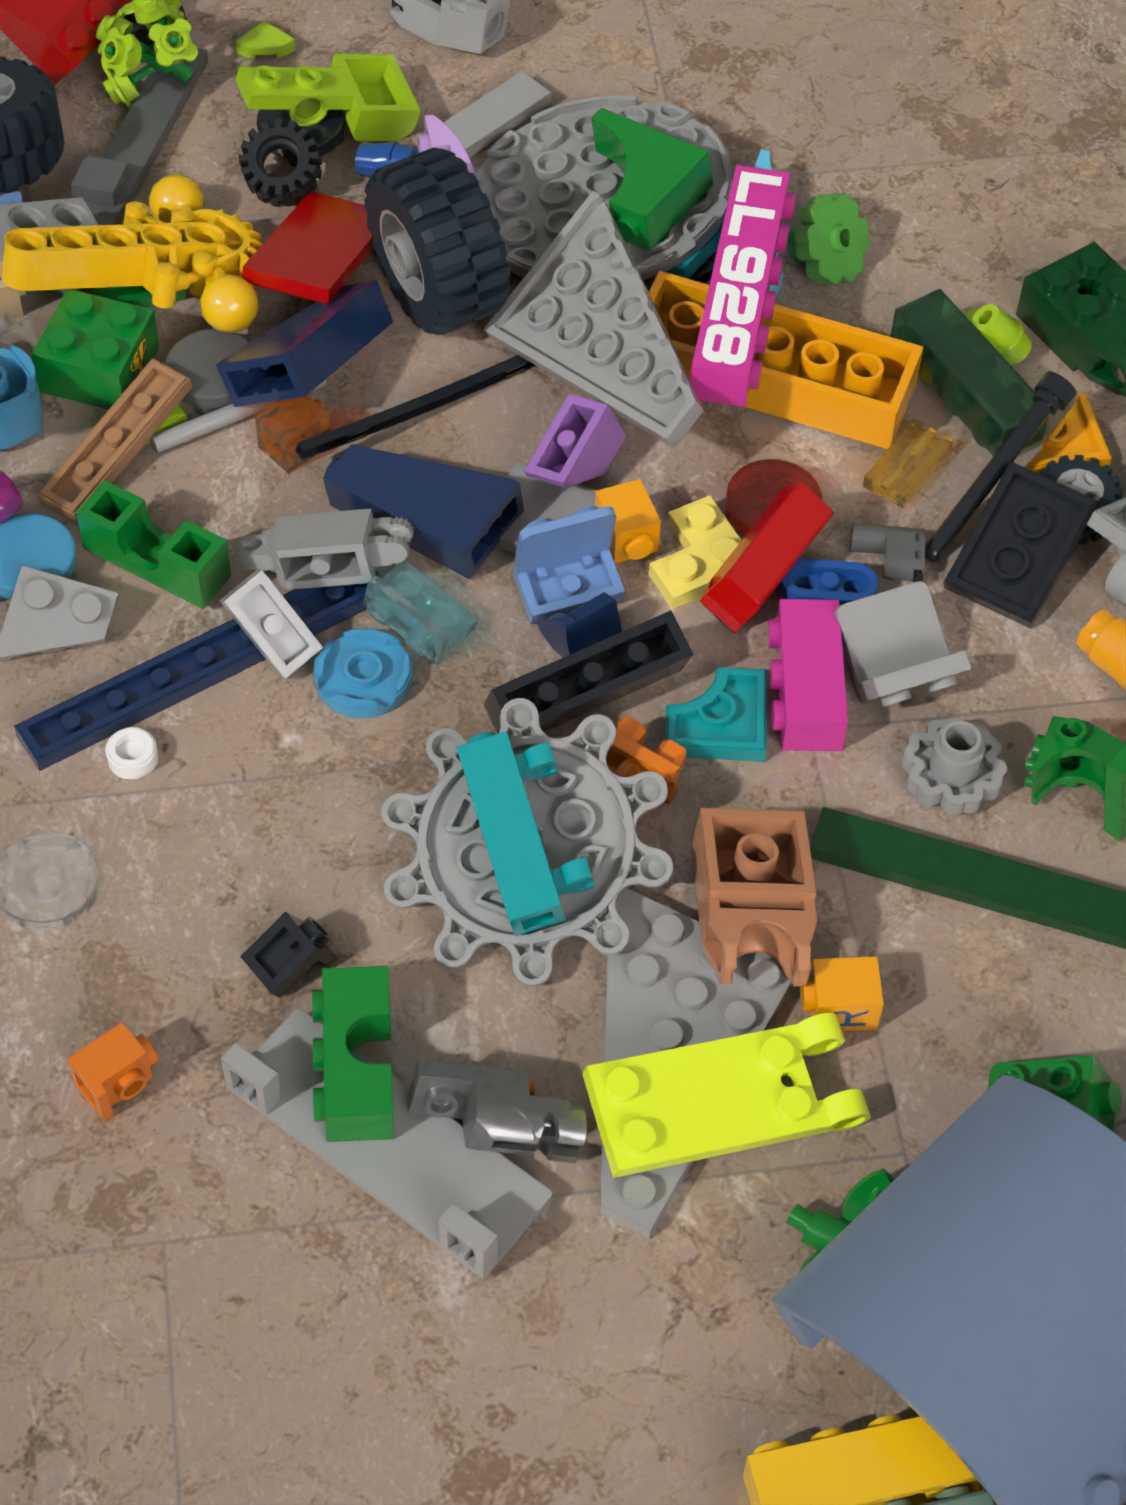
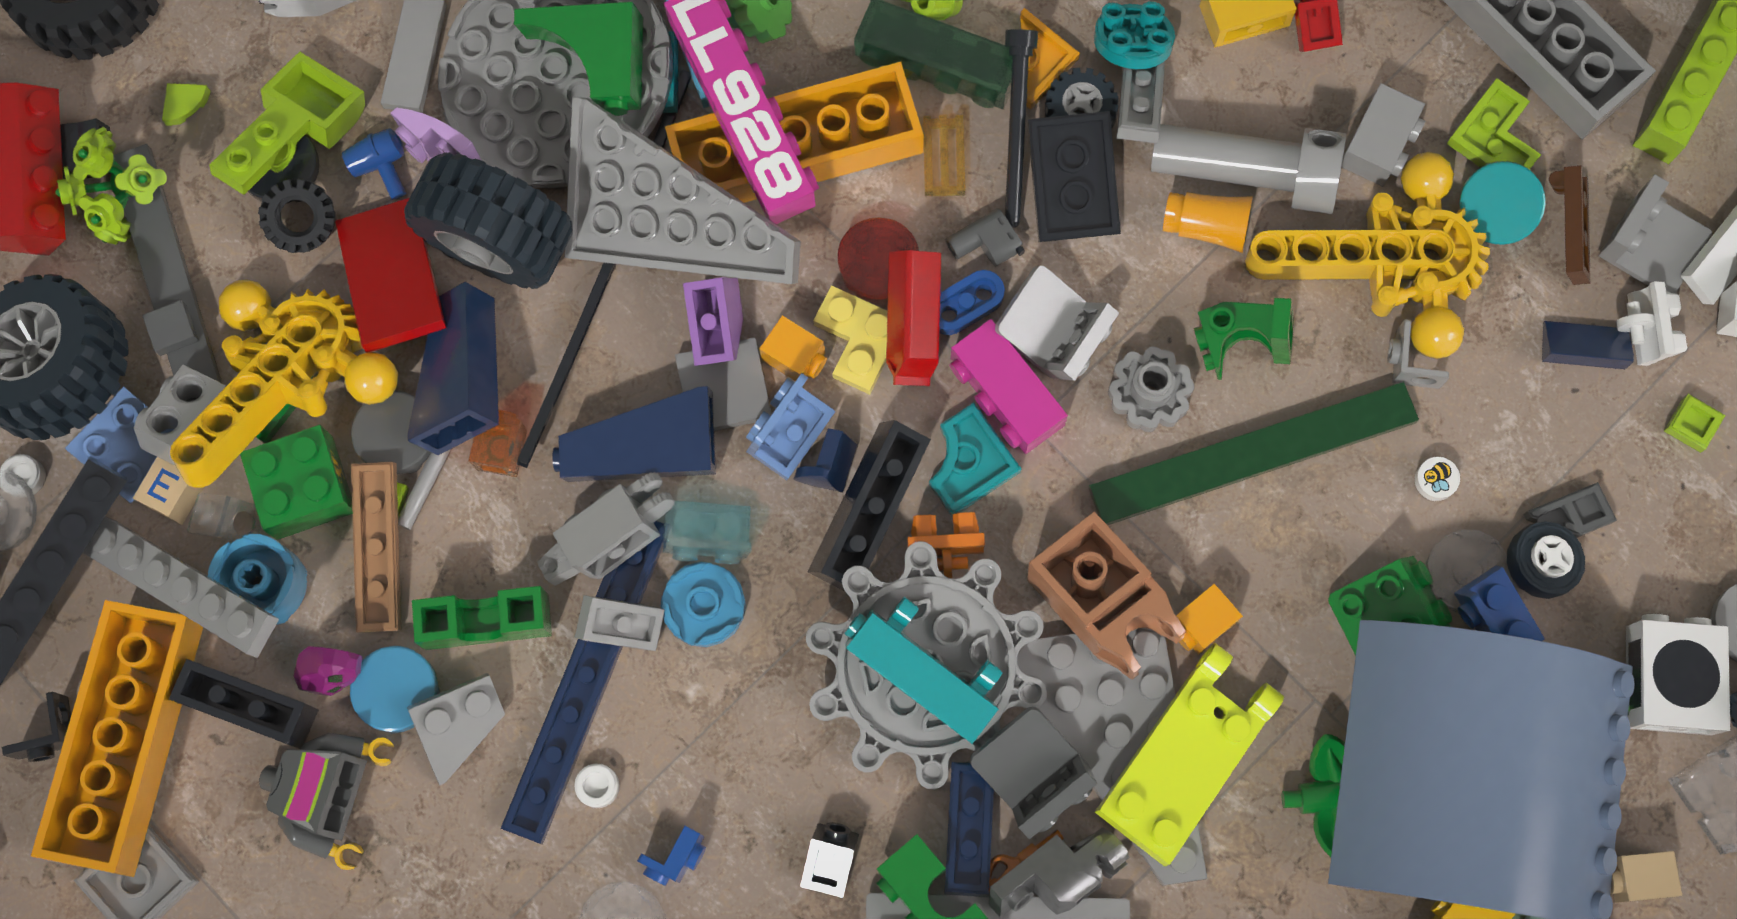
camera: 30 degrees left, 20 degrees up
(150, 854) = (684, 855): none -> blue bracket
(448, 1018) = (968, 833): none -> dark blue tile
(553, 997) = (1034, 771): none -> dark grey bracket

